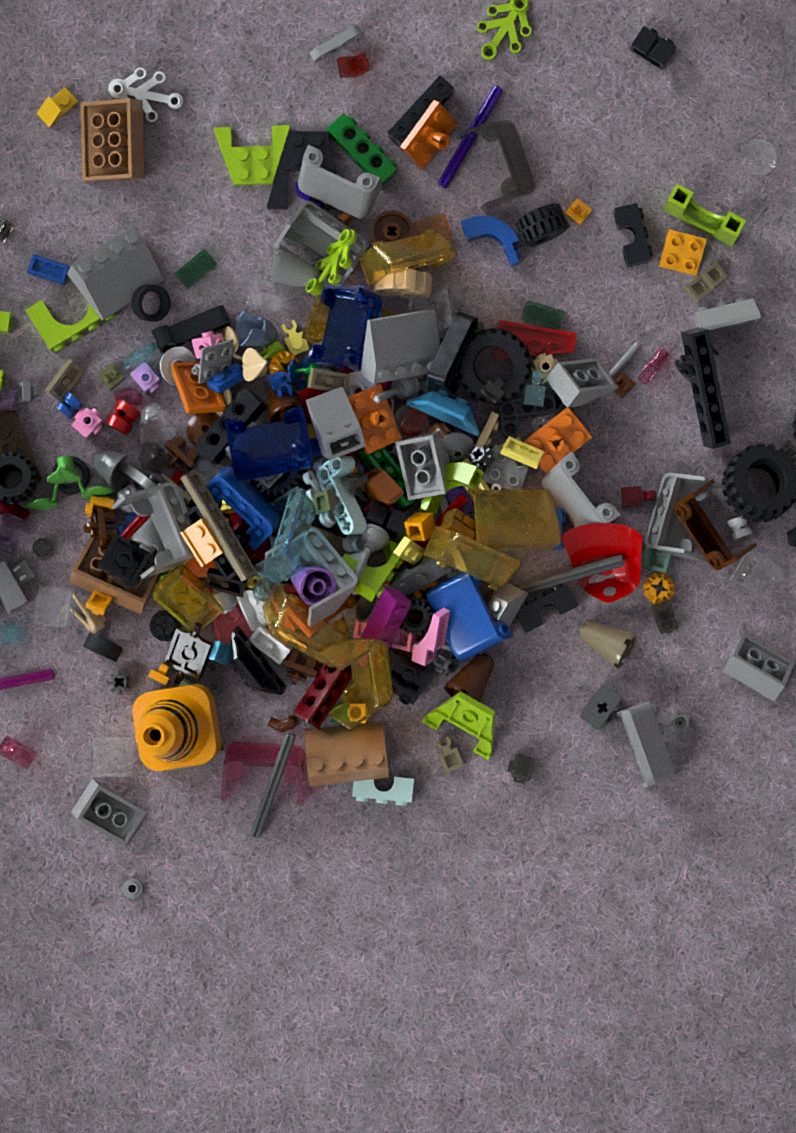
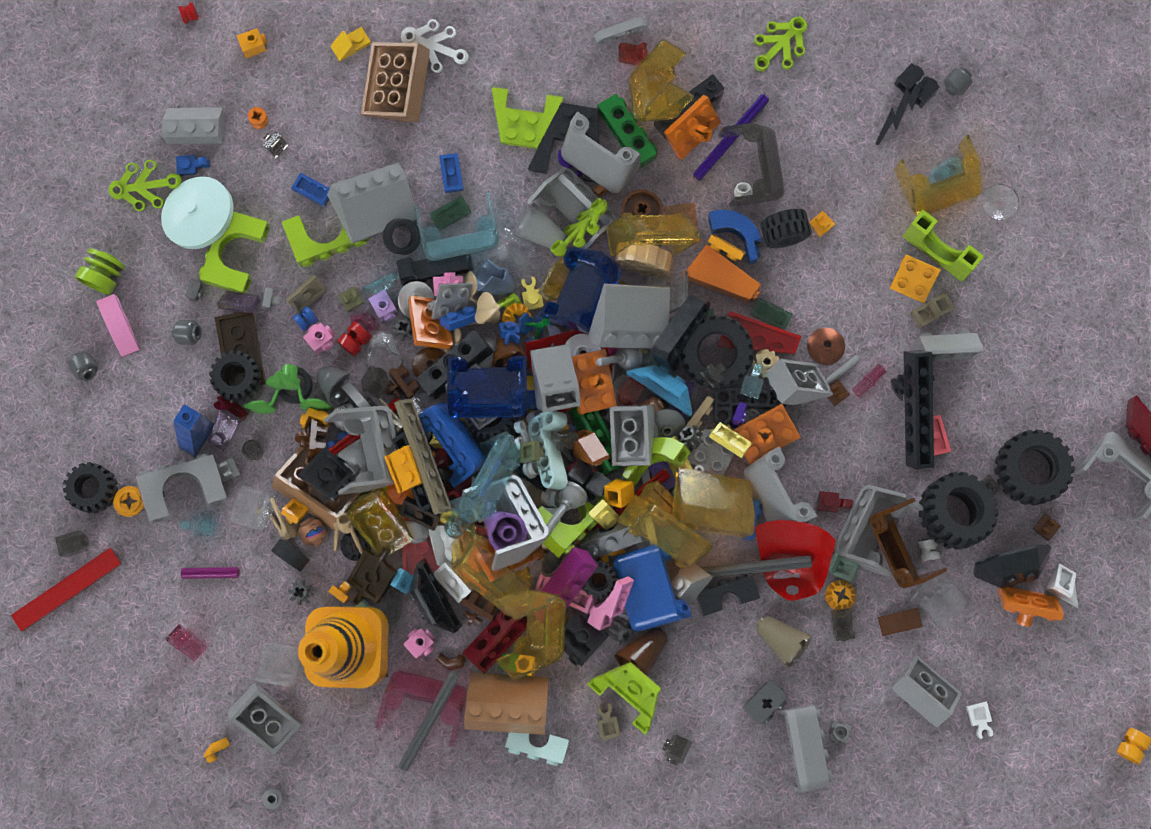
camera: 10 degrees right, 5 degrees down
(65, 849) = (216, 746): none -> light orange arm
(119, 620) = (312, 532): none -> nougat head
(153, 608) = (345, 526): none -> tan plant
(172, 403) = (401, 332): none -> dark grey gear
(188, 226) = (451, 173): none -> blue plate
(214, 301) = (439, 249): none -> clear light blue windscreen
(249, 718) = (412, 643): none -> bright pink brick
(327, 379) = (555, 336): dark tan plate -> none
(376, 102) = (652, 88): none -> clear yellow windscreen
(478, 252) = (732, 251): none -> light orange plate
(486, 285) = (722, 276): none -> orange slope
(492, 188) = (743, 189): none -> white plate
(527, 425) = (739, 415): none -> dark purple plate
(601, 347) = (822, 354): none -> copper dish
(630, 218) = (870, 238): black arch -> none
(636, 87) = (895, 118): none -> black piece
(687, 165) = (946, 192): none -> clear yellow windscreen
(695, 36) = (958, 81): none -> dark grey head
(696, 135) = (943, 169): none -> clear light blue plate
(722, 603) = (900, 622): none -> reddish brown slope
(732, 411) = (941, 442): none -> coral plate

